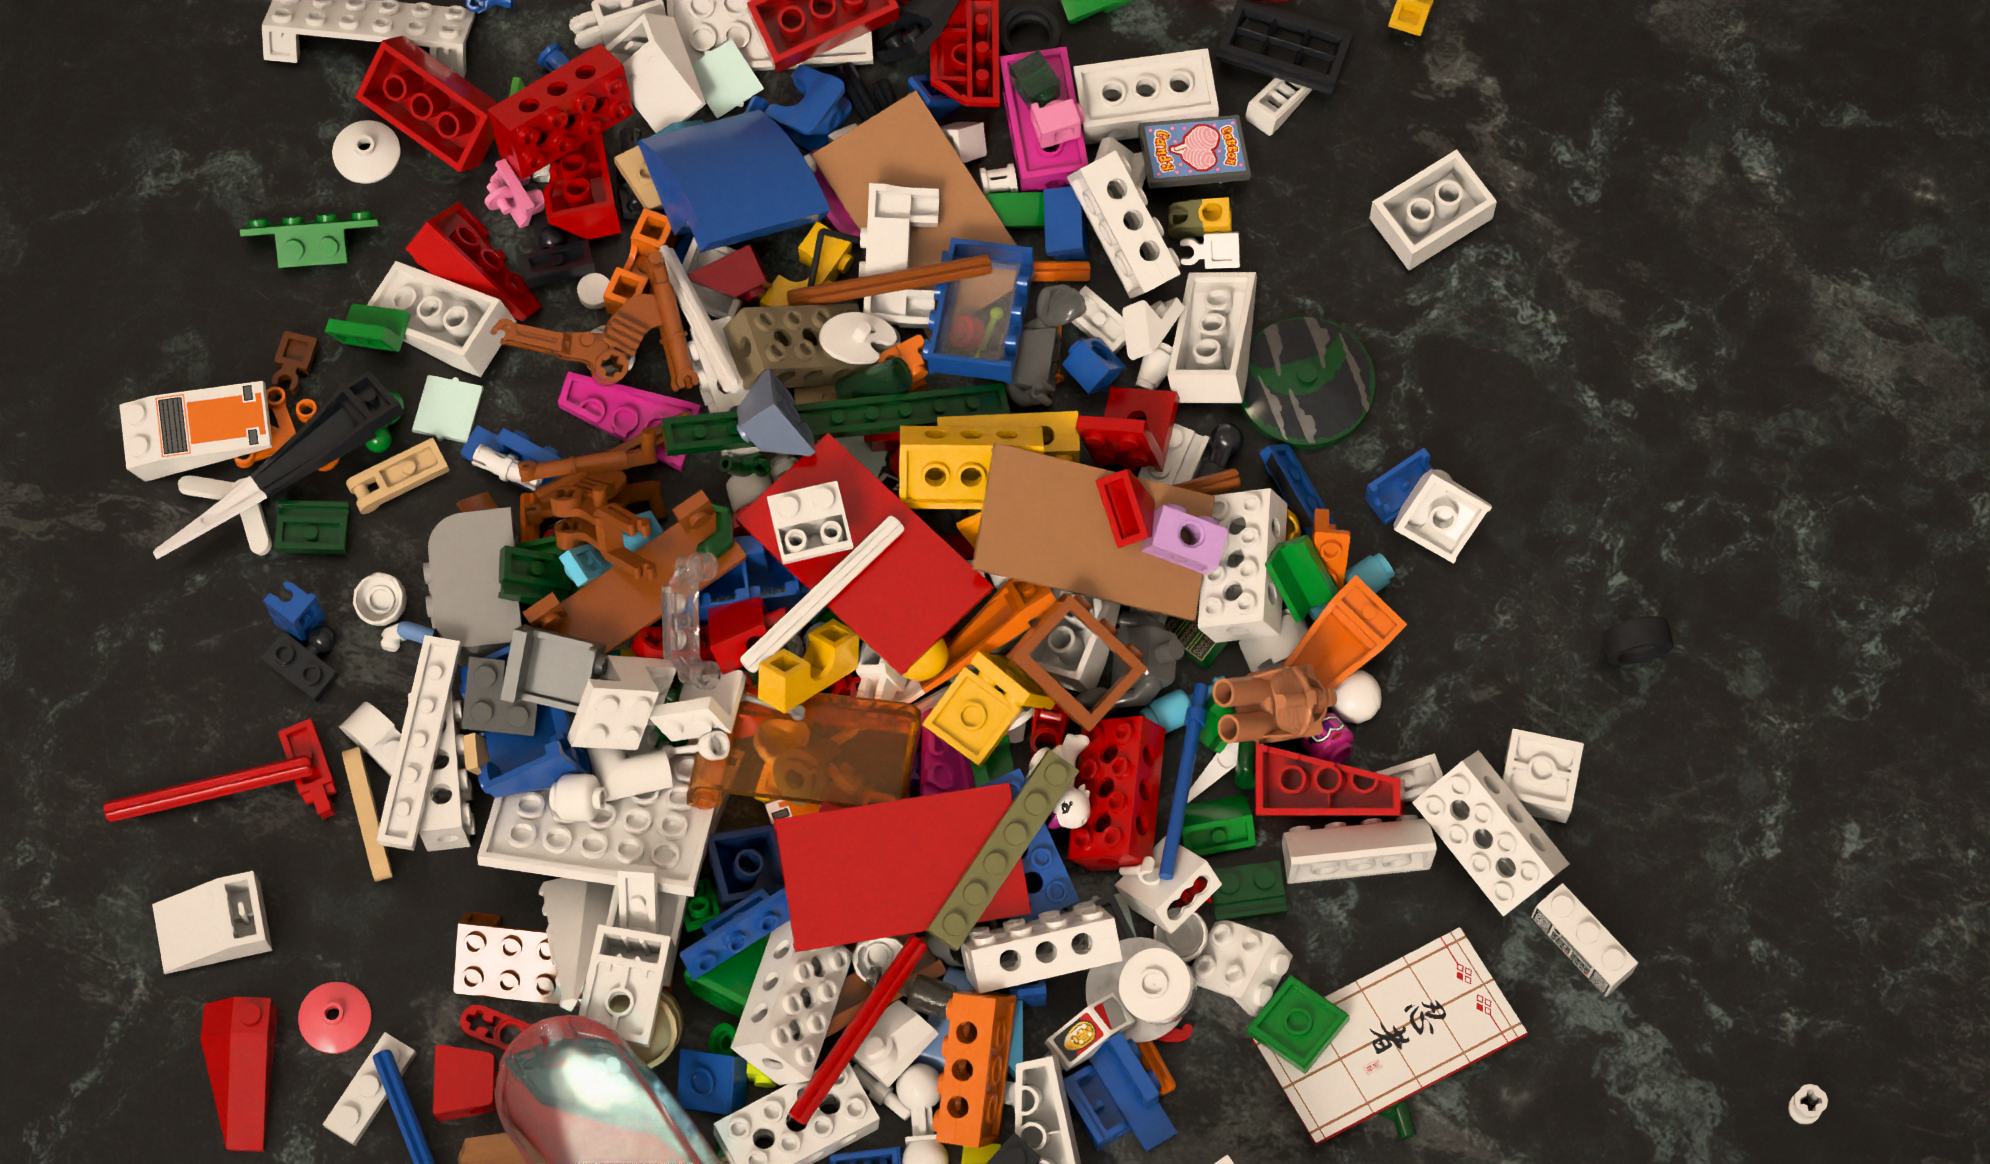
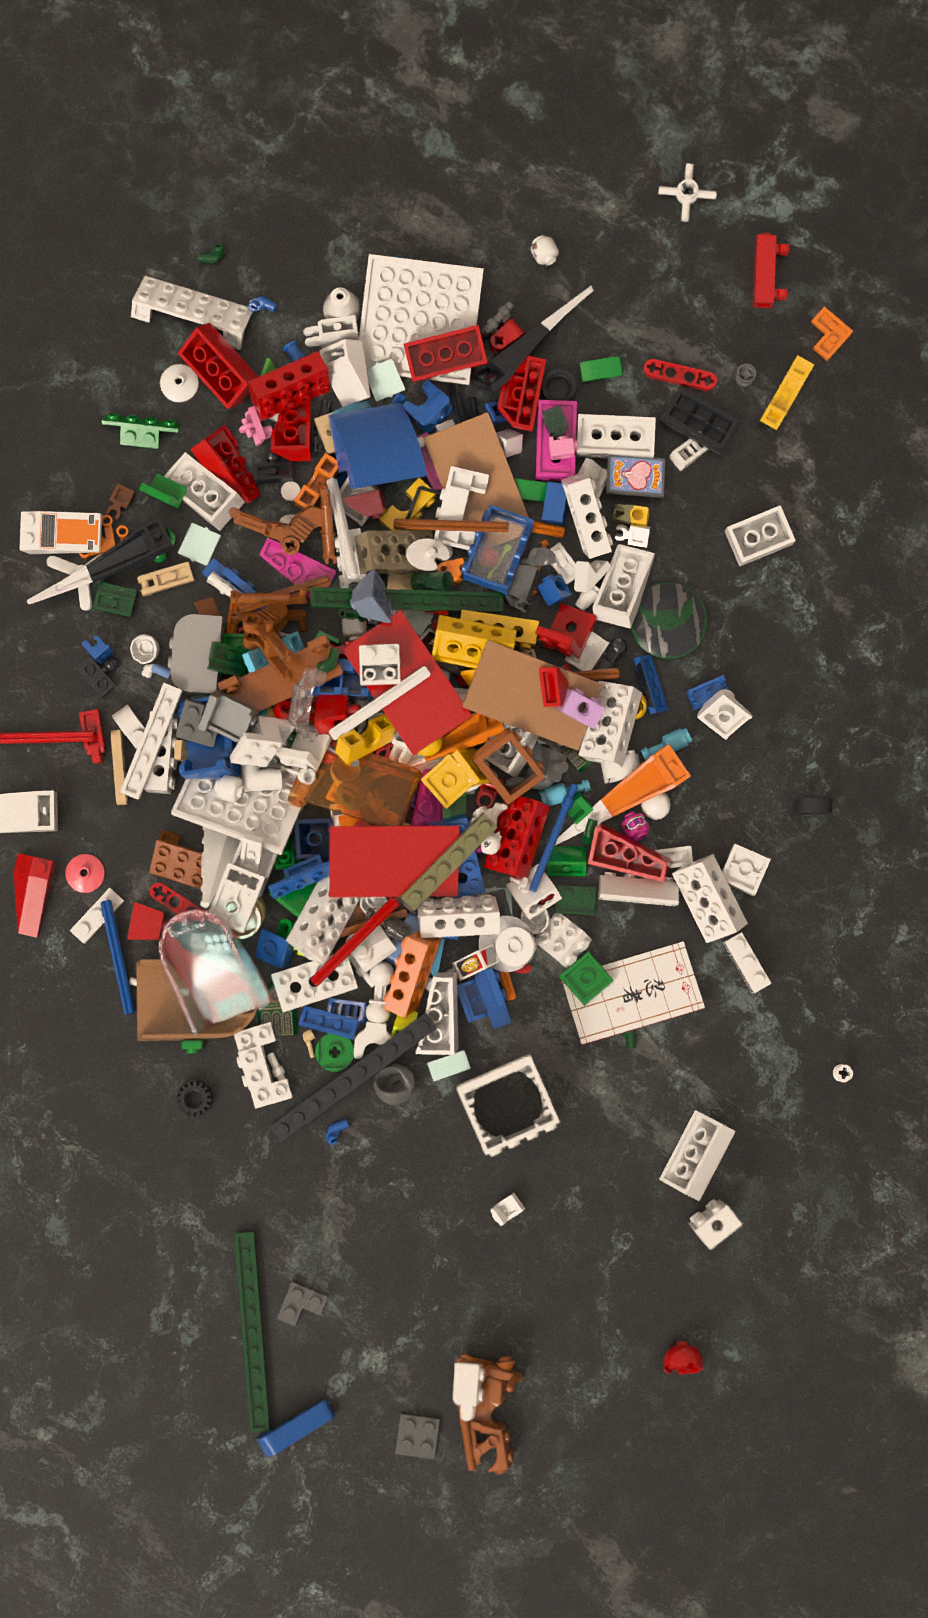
camera: 10 degrees right, 15 degrees up
(998, 180) = (518, 473): white bush -> none
(1297, 710) = (609, 807): nougat helmet -> none
(1300, 576) = (639, 737): green panel -> none
(1331, 546) = (657, 726): orange bracket -> none

